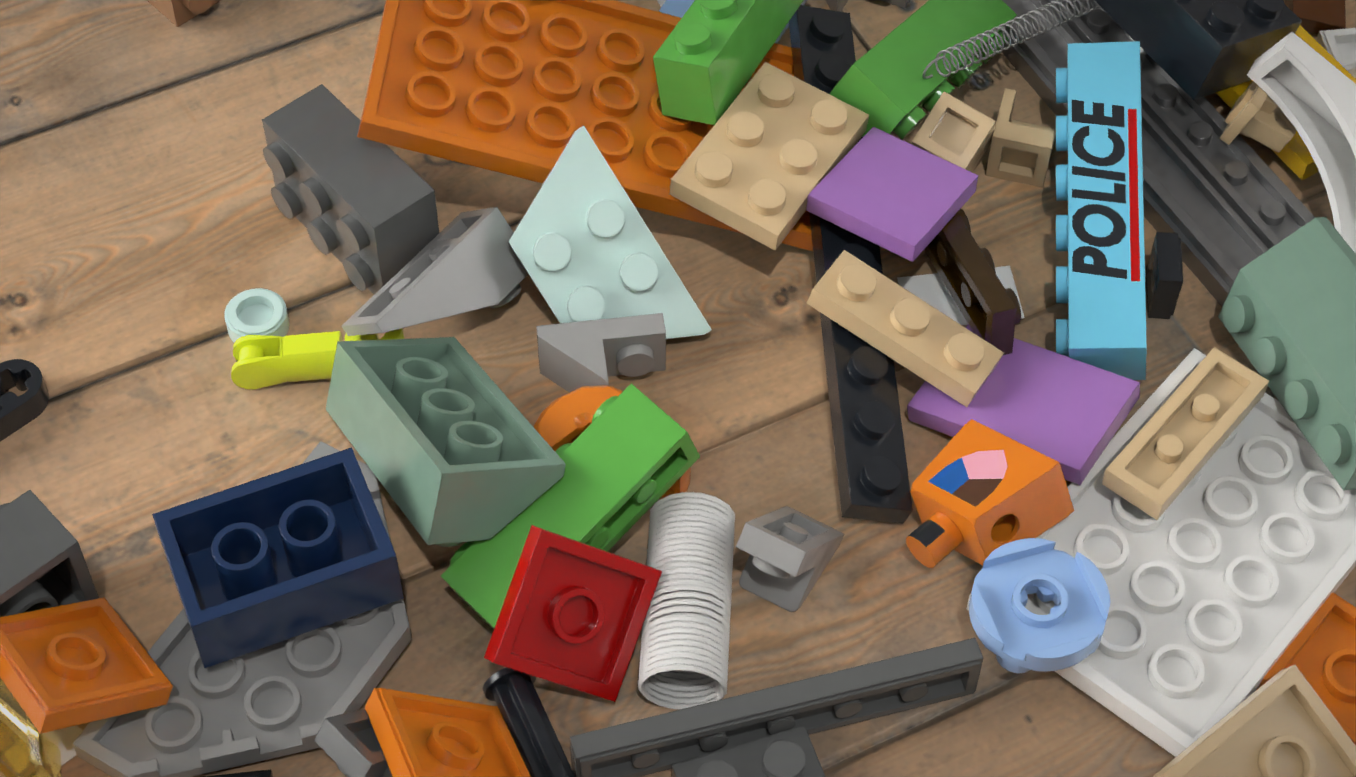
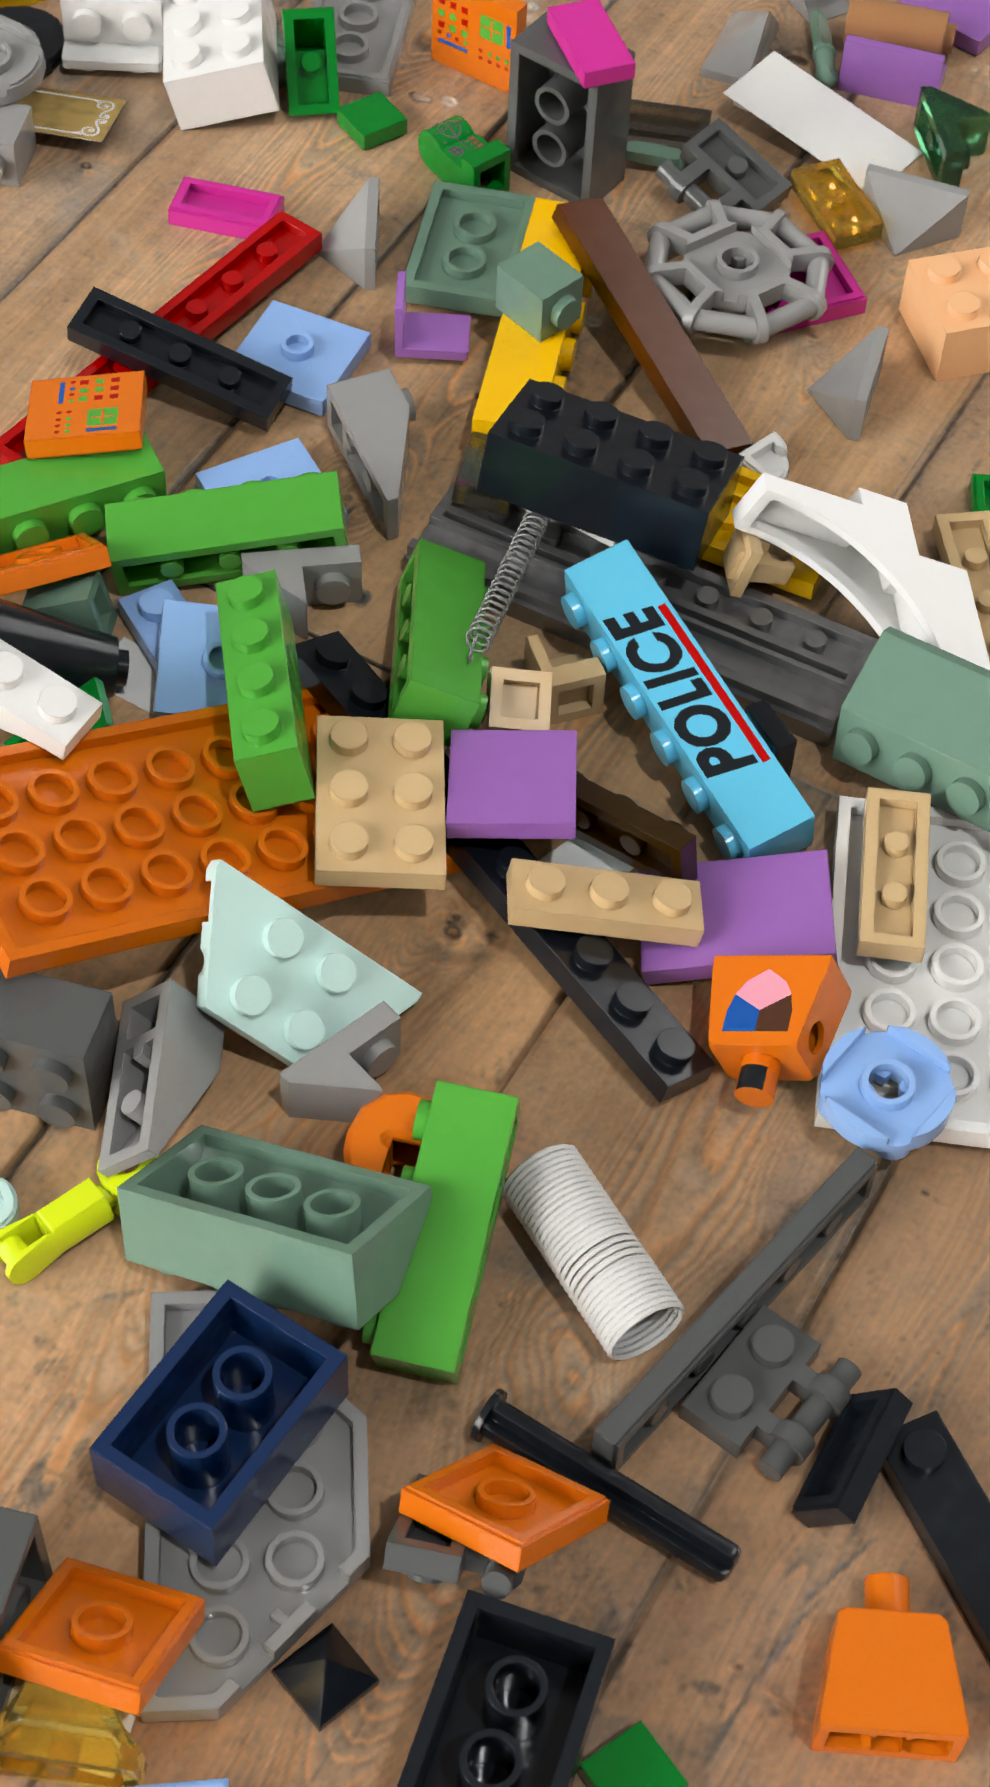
camera: 35 degrees left, 0 degrees up
(572, 614) = (518, 1320): red plate -> none
(786, 555) = (641, 1163): light grey slope -> none

